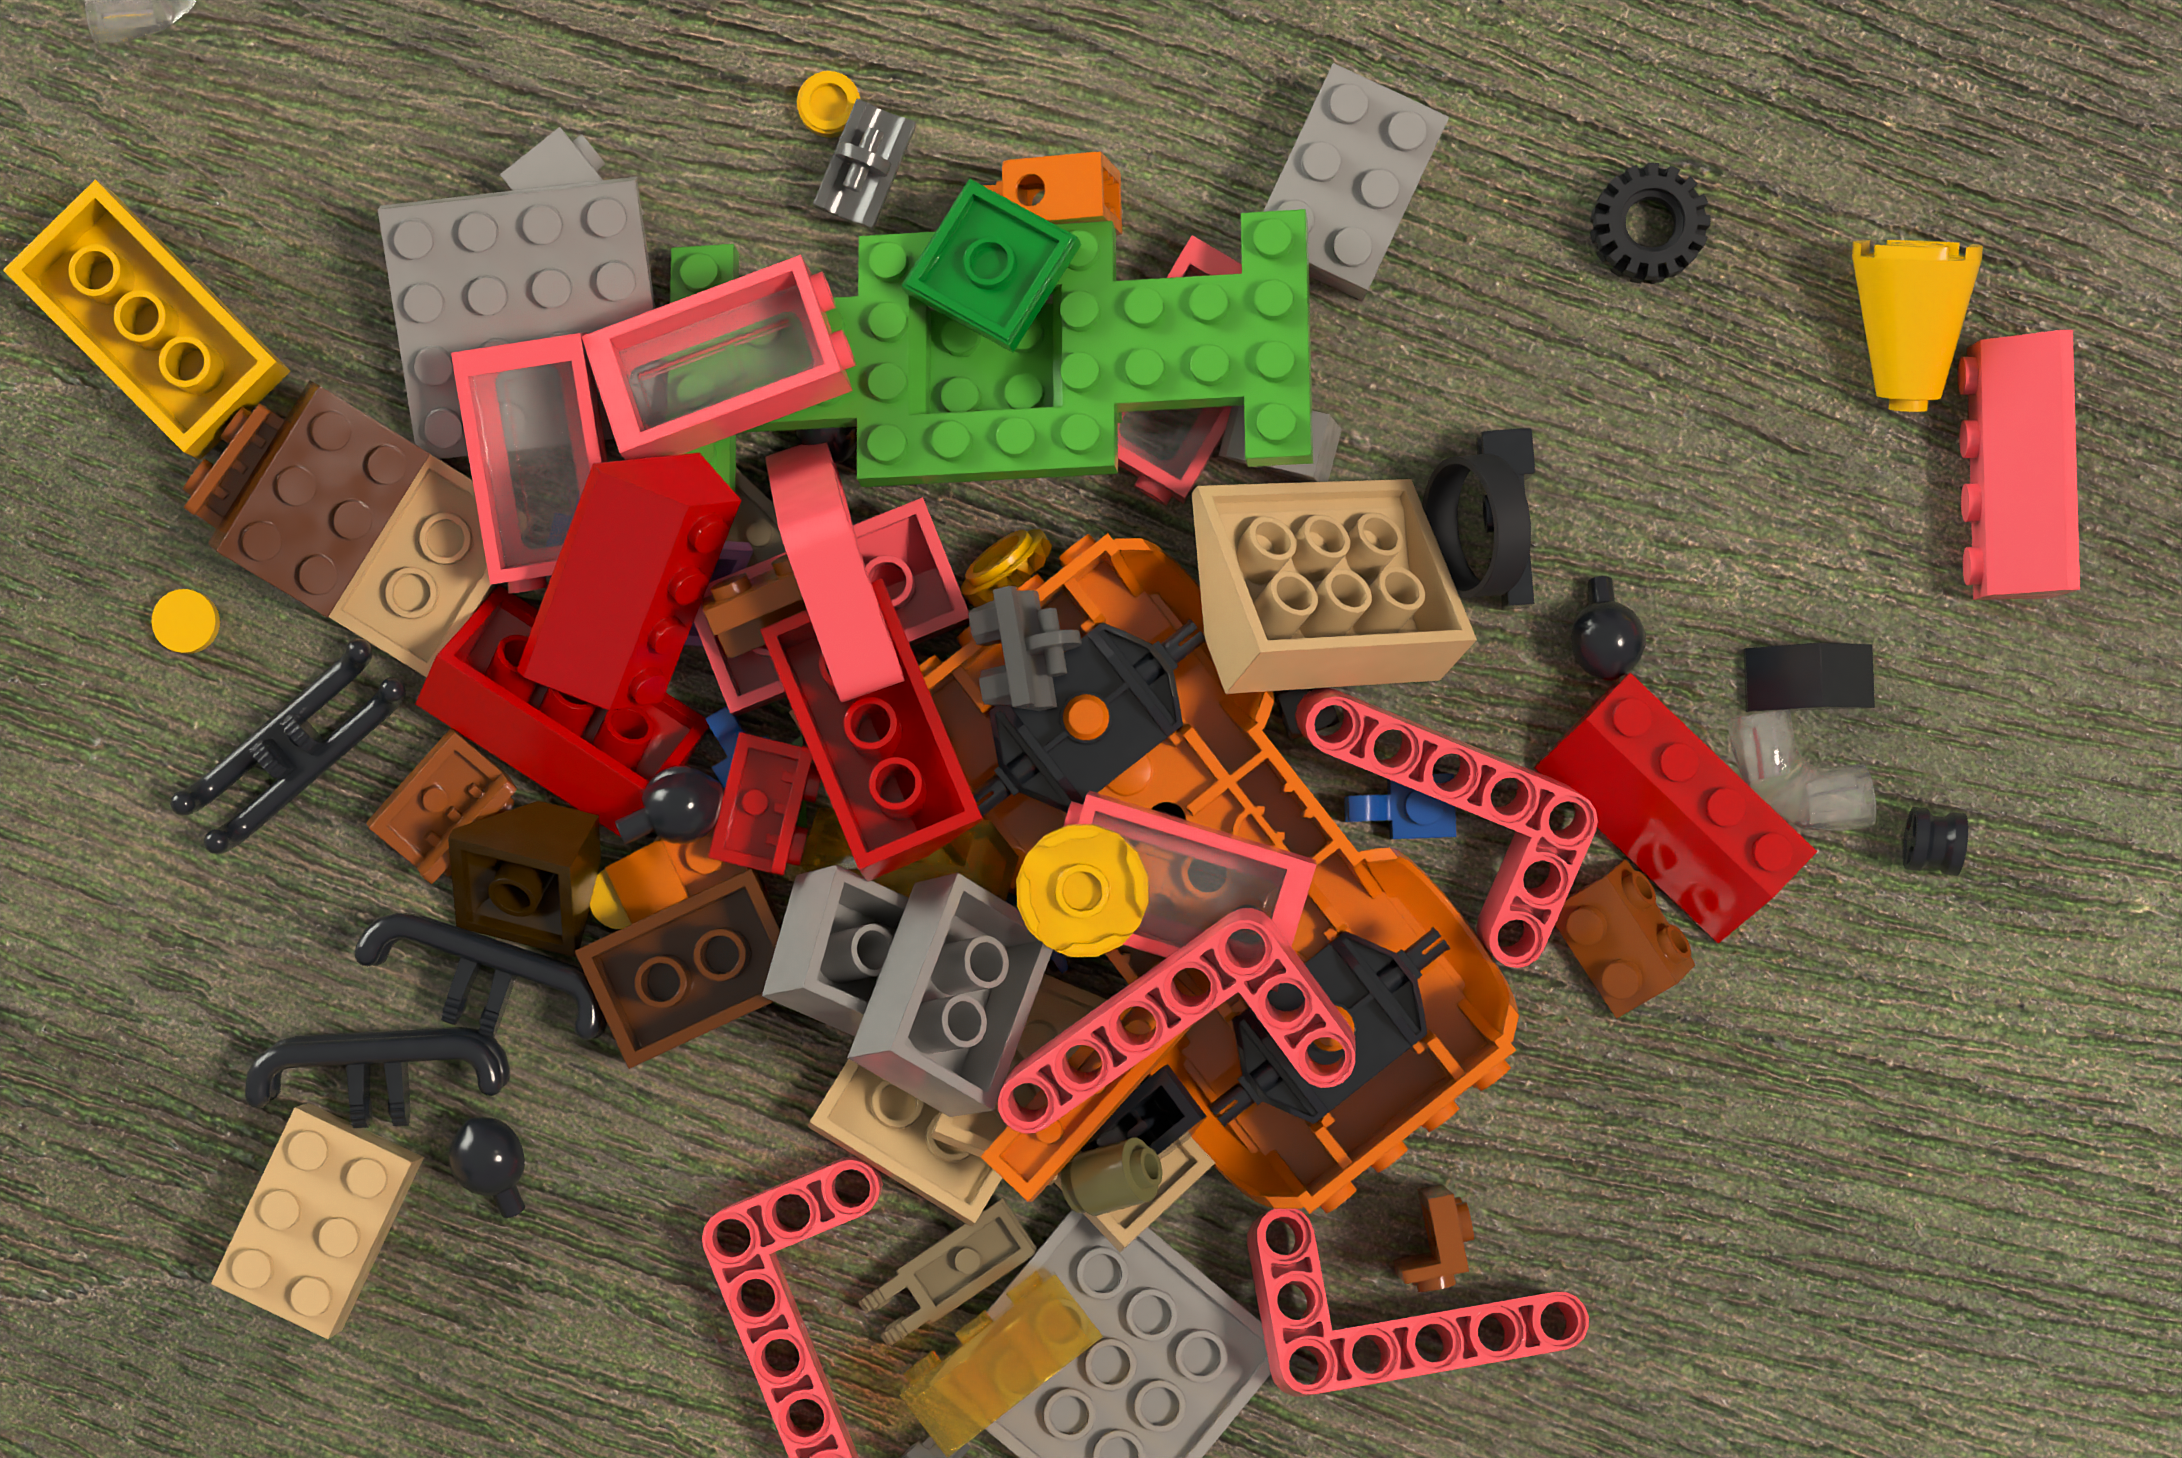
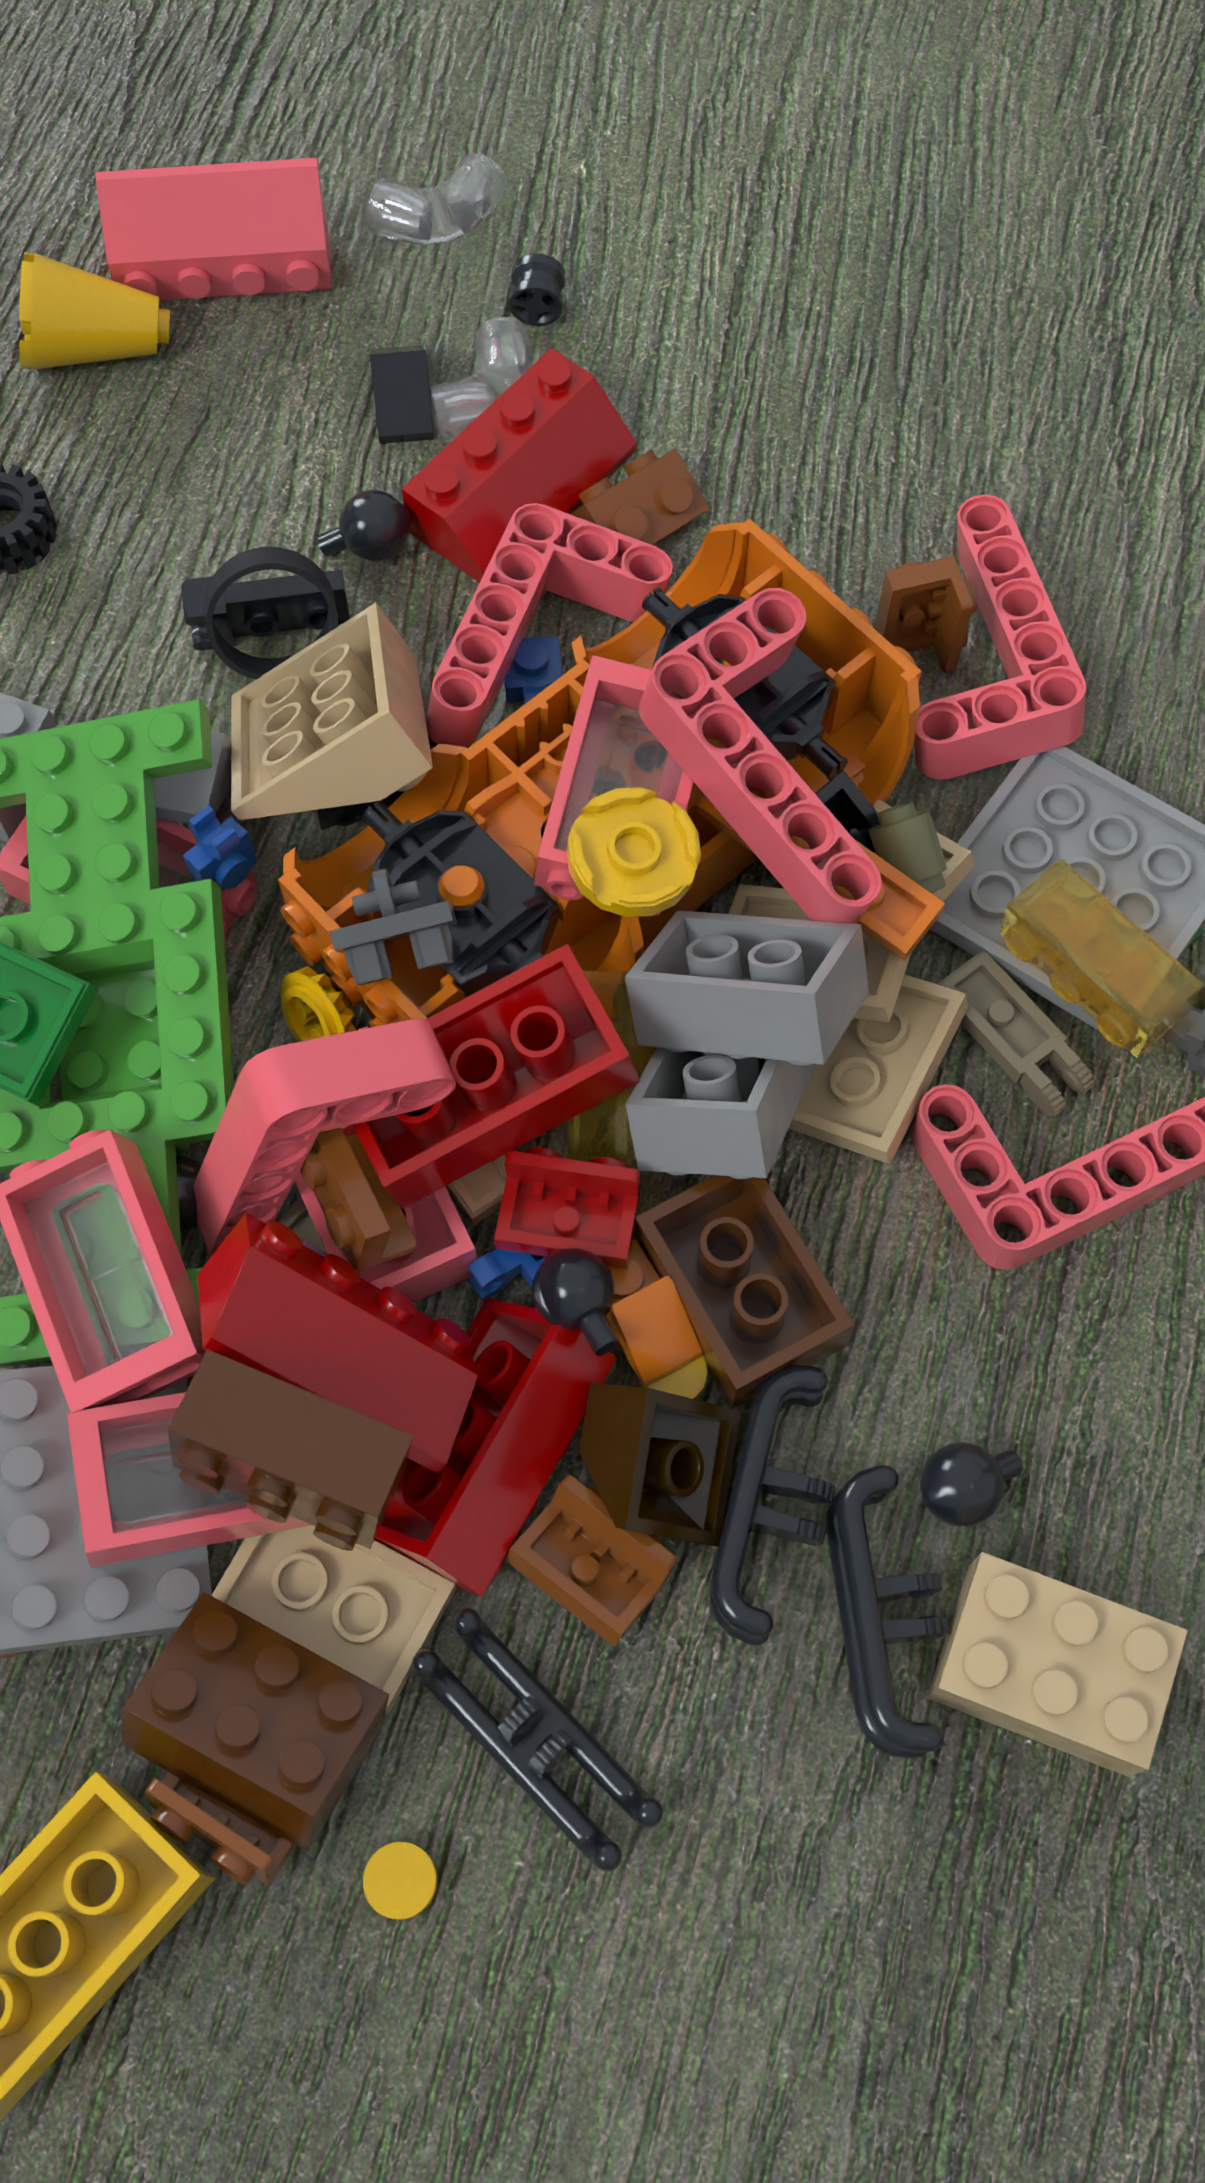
camera: 90 degrees left, 20 degrees down
(510, 538) = (287, 1451): none -> reddish brown brick
(1164, 472) = (221, 850): none -> blue plate
(2058, 730) = (438, 211): none -> clear cylinder

